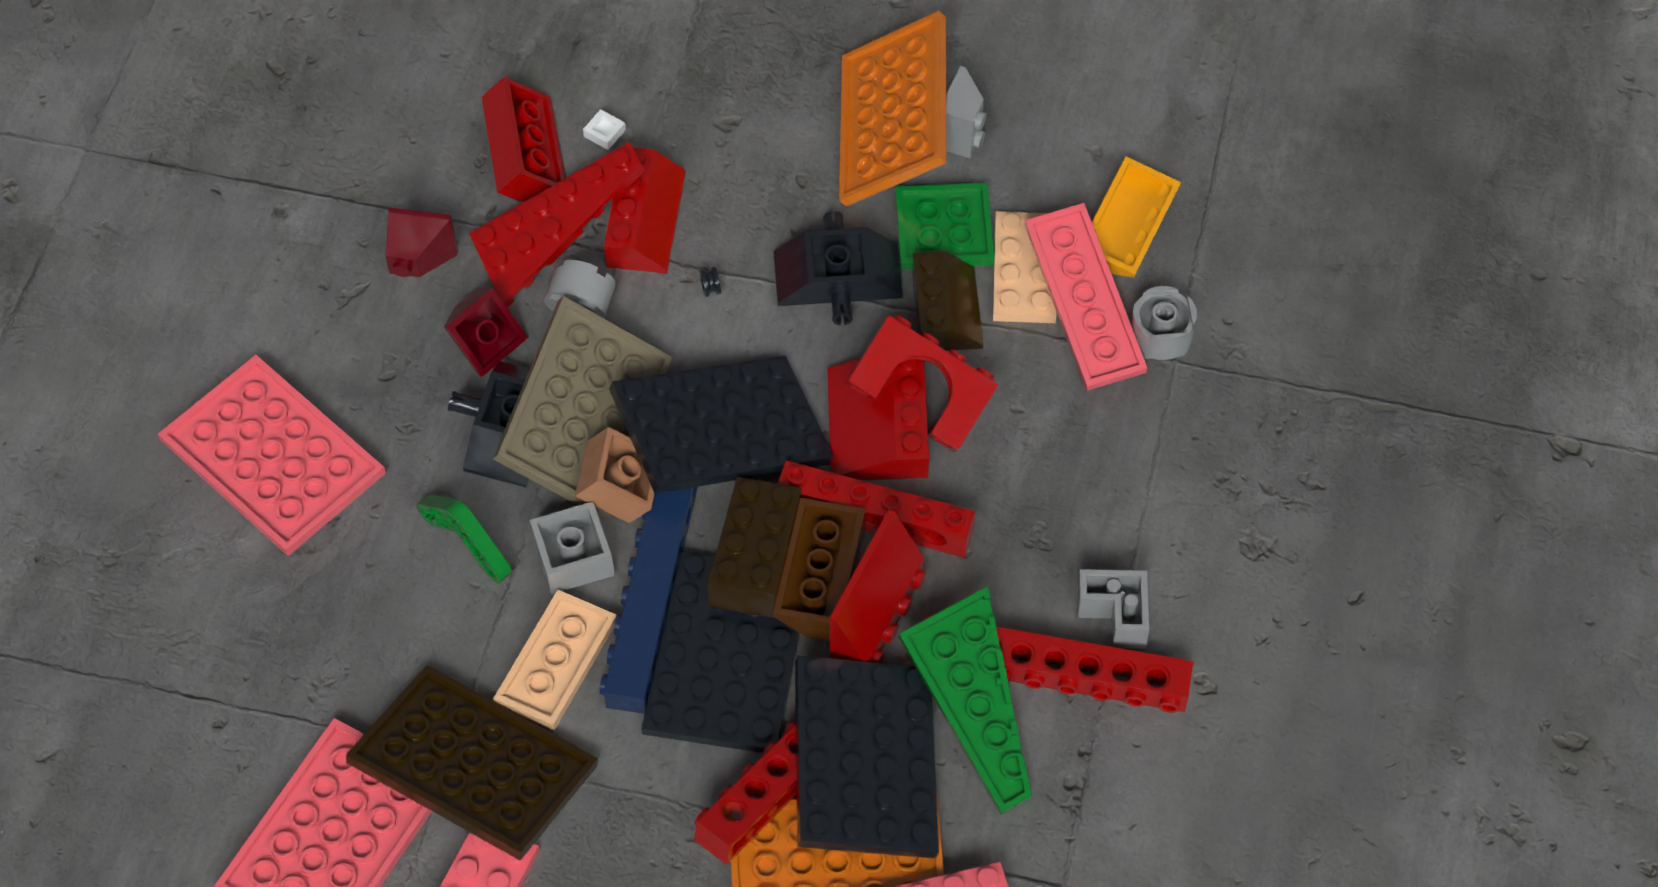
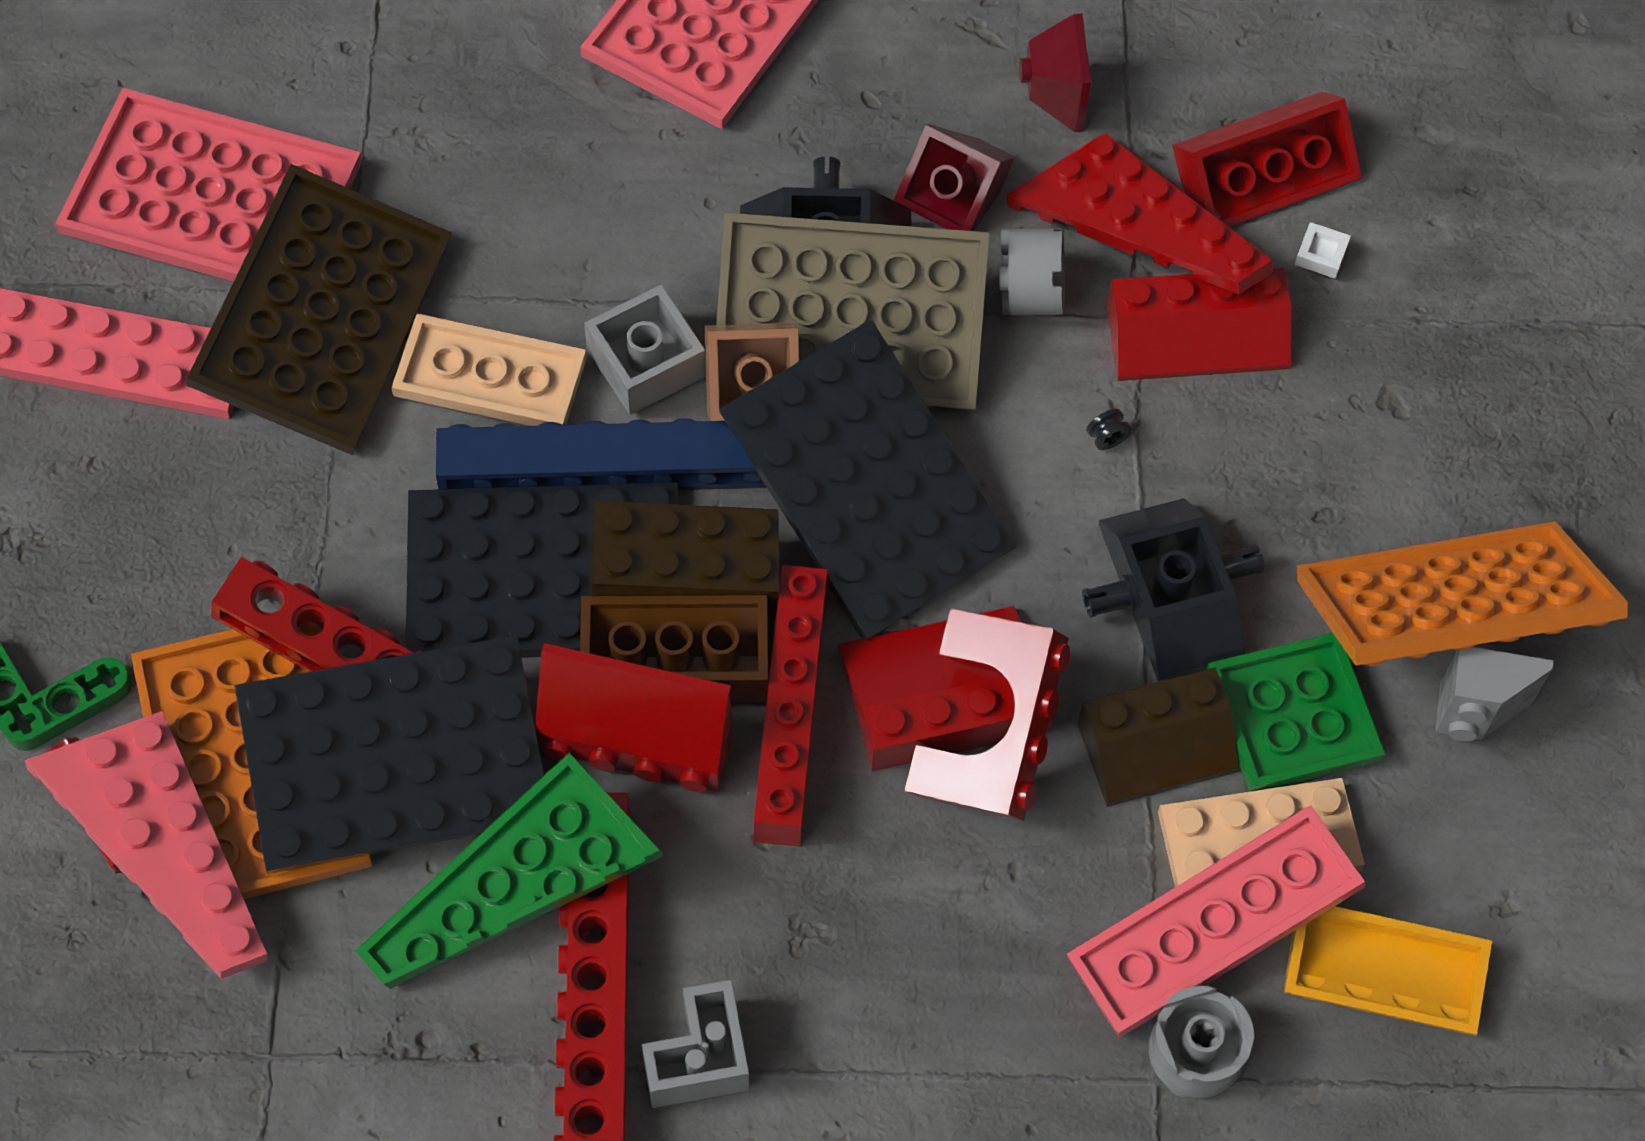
camera: 75 degrees right, 5 degrees up
(456, 516) = (642, 200): green beam -> none

